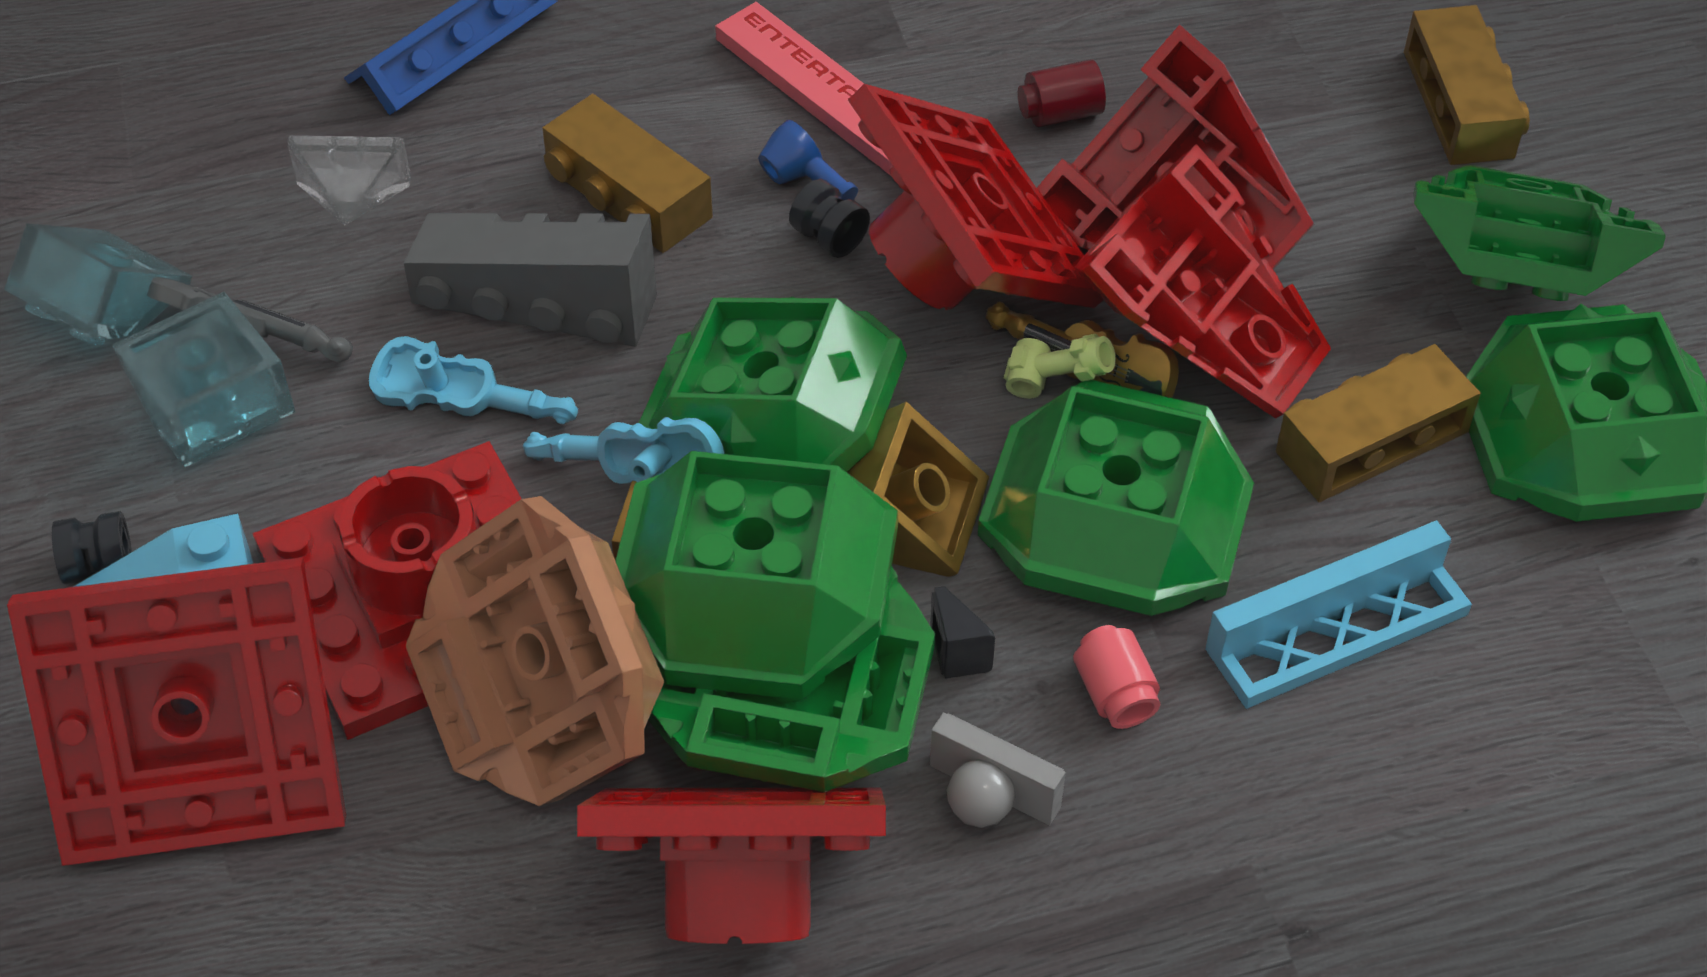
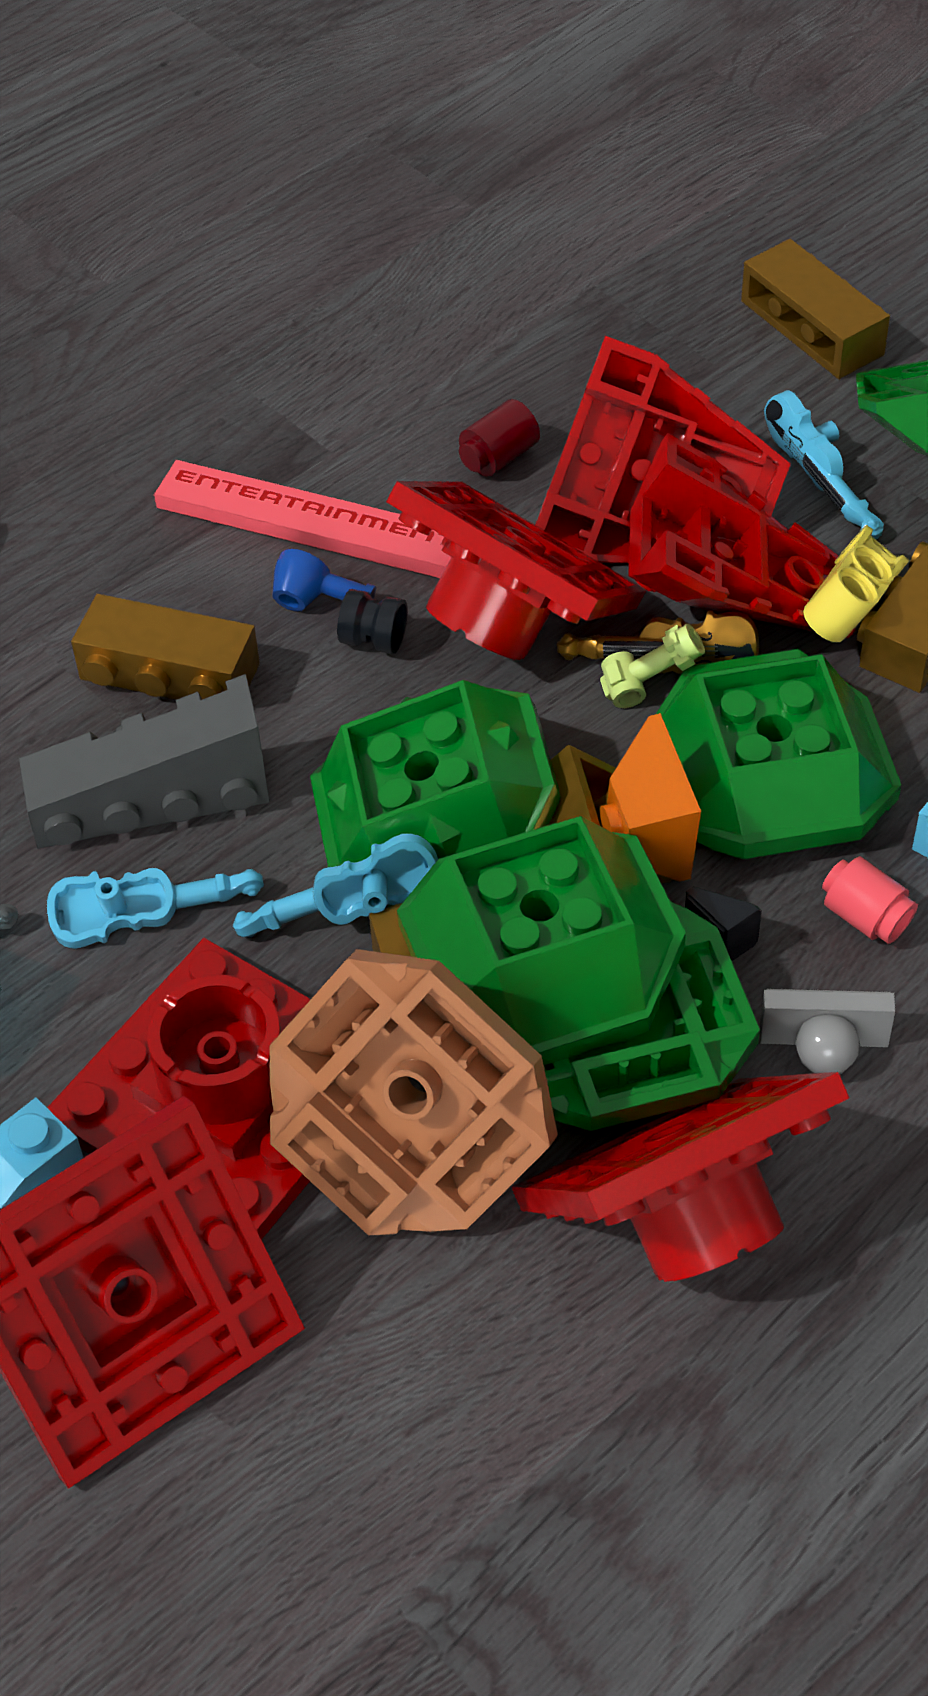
camera: 25 degrees left, 0 degrees up
(943, 490) = (655, 801): none -> orange slope
(1301, 367) = (852, 586): none -> light yellow piece
(1364, 235) = (812, 448): none -> medium azure piece

